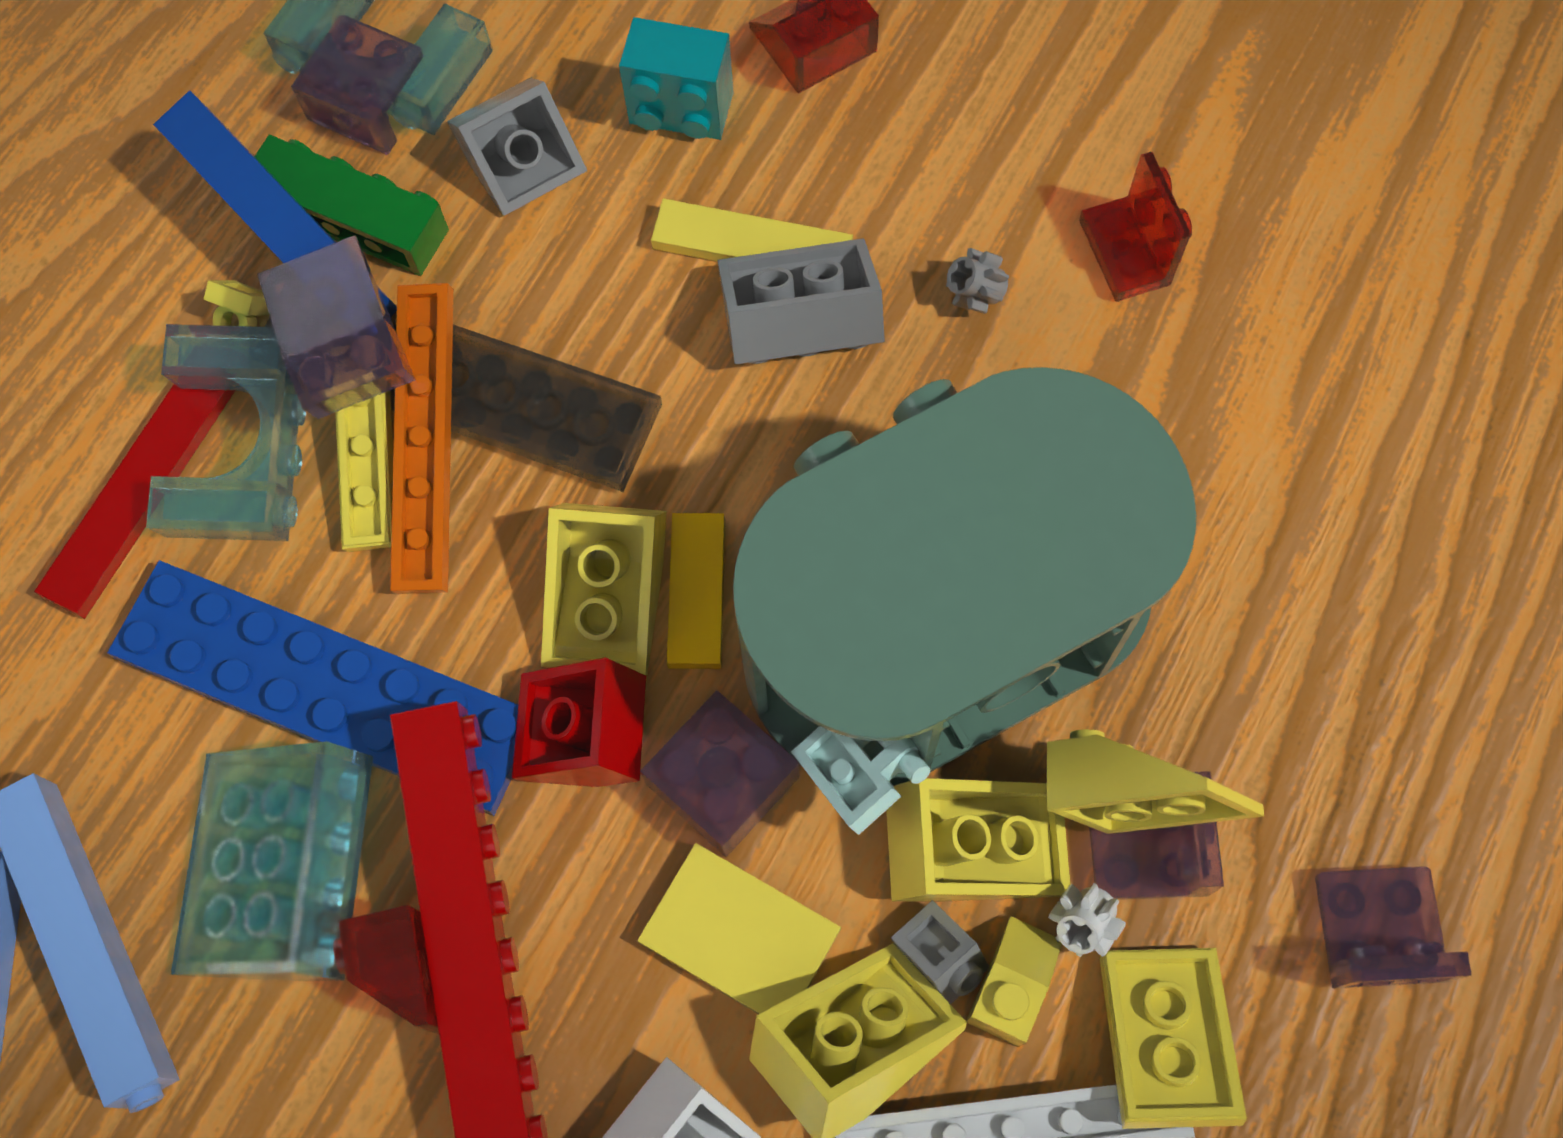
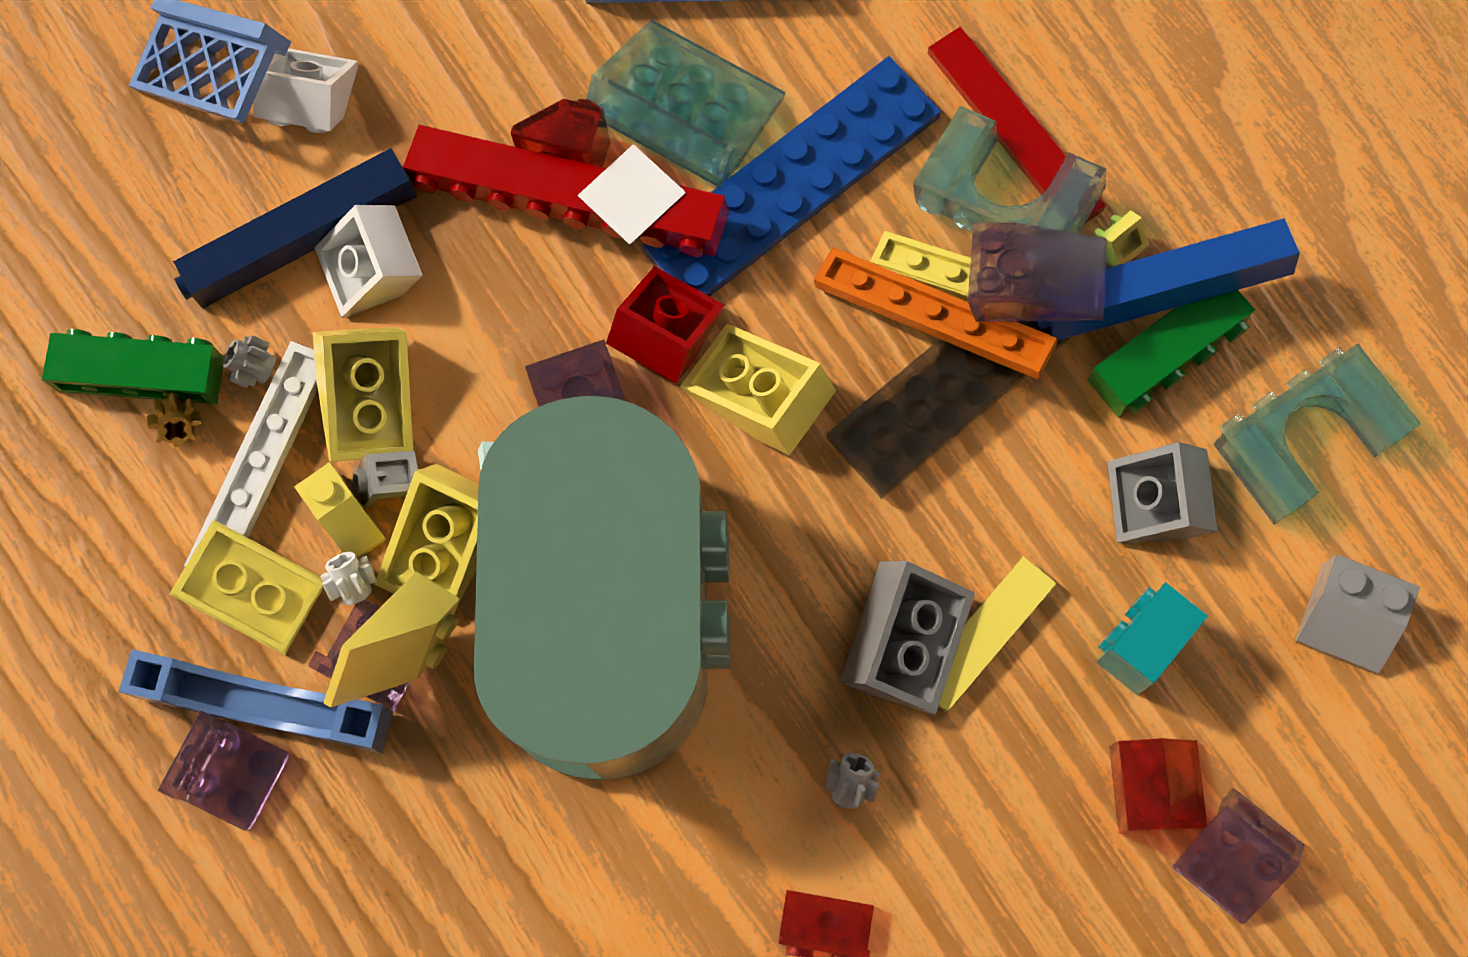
camera: 120 degrees right, 5 degrees up
(356, 81) = (1279, 398): clear purple bracket -> none
(438, 831) = (631, 194): none -> white sticker
(696, 591) = (728, 452): yellow tile -> none
(738, 932) = (473, 361): light yellow tile -> none
(1325, 1029) = (255, 701): none -> medium blue arch

